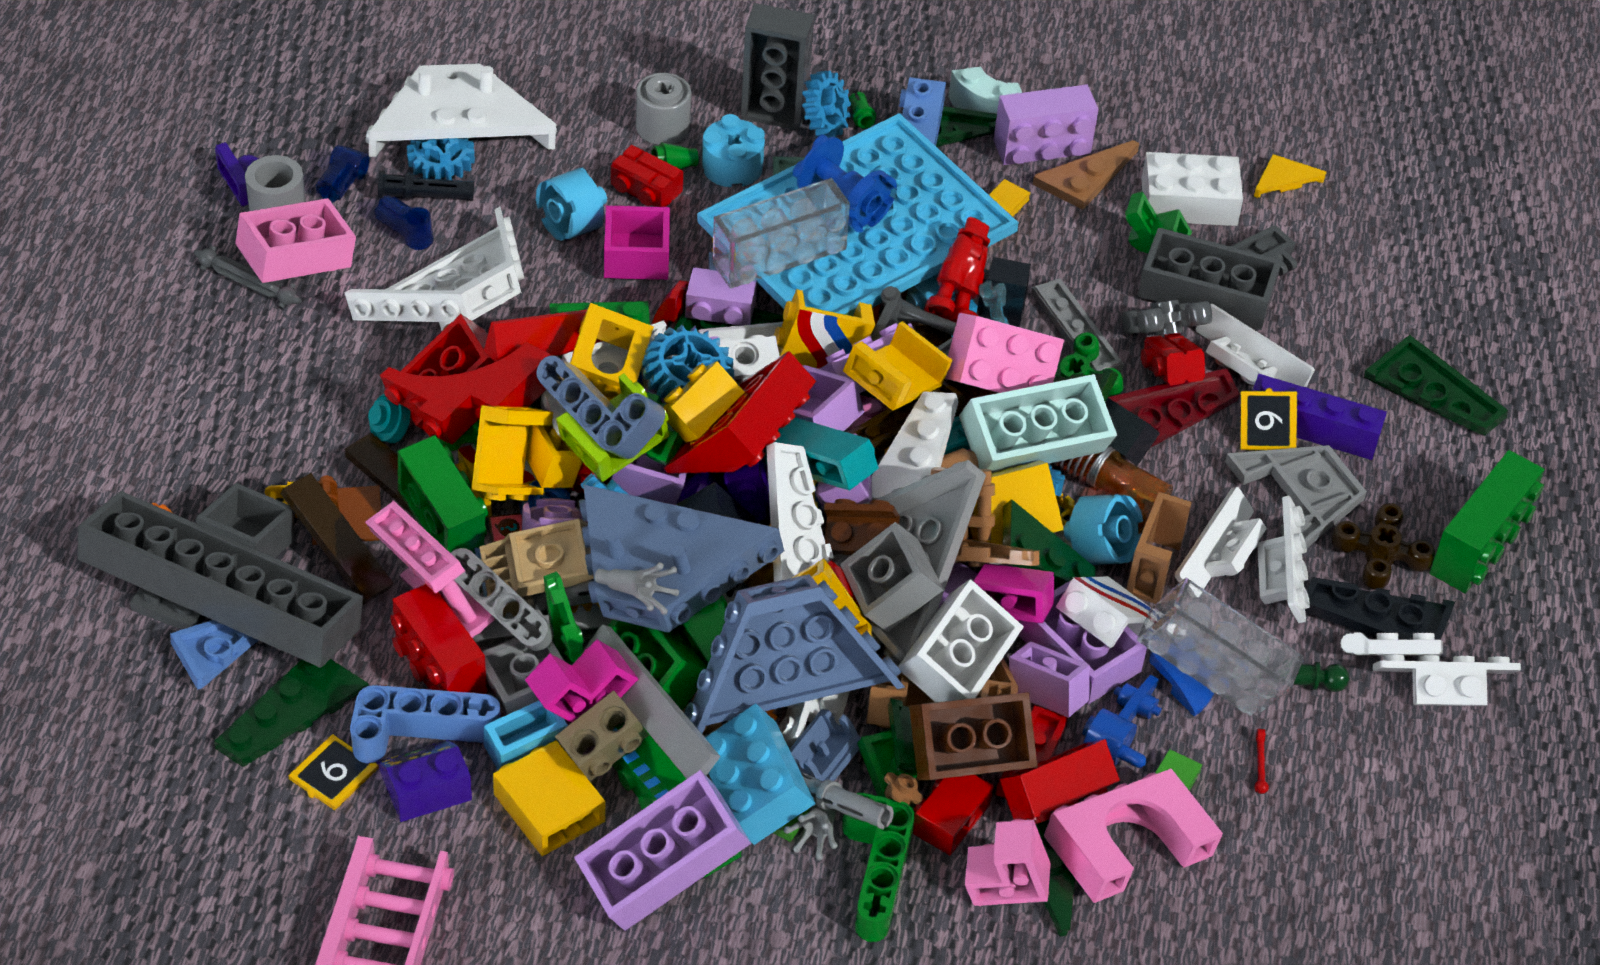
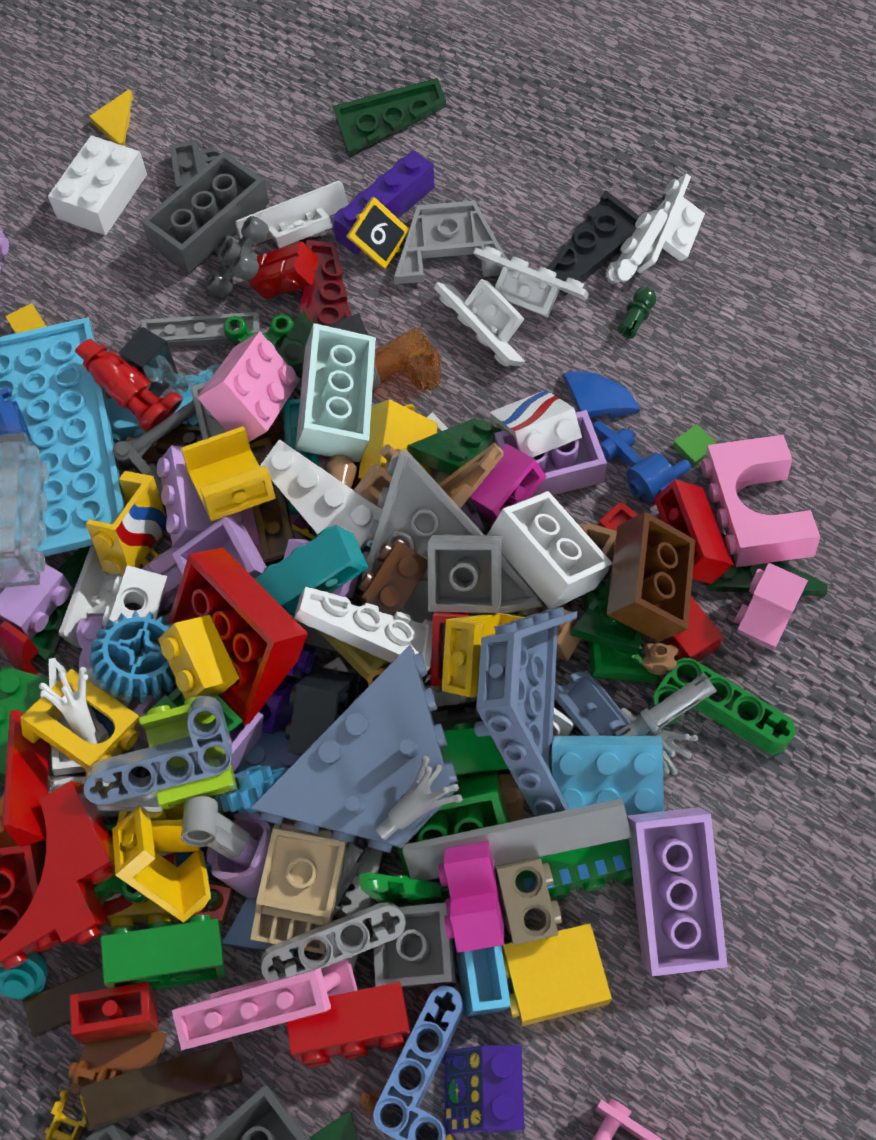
camera: 60 degrees left, 15 degrees up
(380, 480) = (114, 1013): none -> red brick
(557, 465) = (207, 827): none -> light grey piece
(618, 337) = (73, 705): none -> white piece
(1051, 678) = (589, 493): lavender brick -> none
(1084, 178) = (34, 257): medium nougat wing -> none
(1104, 528) = (446, 393): medium azure brick -> none
(1146, 222) = (127, 230): green brick -> none
(1151, 563) = (490, 382): medium nougat panel -> none
(1220, 648) = (615, 358): clear brick -> none
(1261, 785) = (679, 373): red hinge -> none
(1383, 546) = (531, 213): dark brown gear -> none
(1488, 522) = (546, 134): green brick -> none

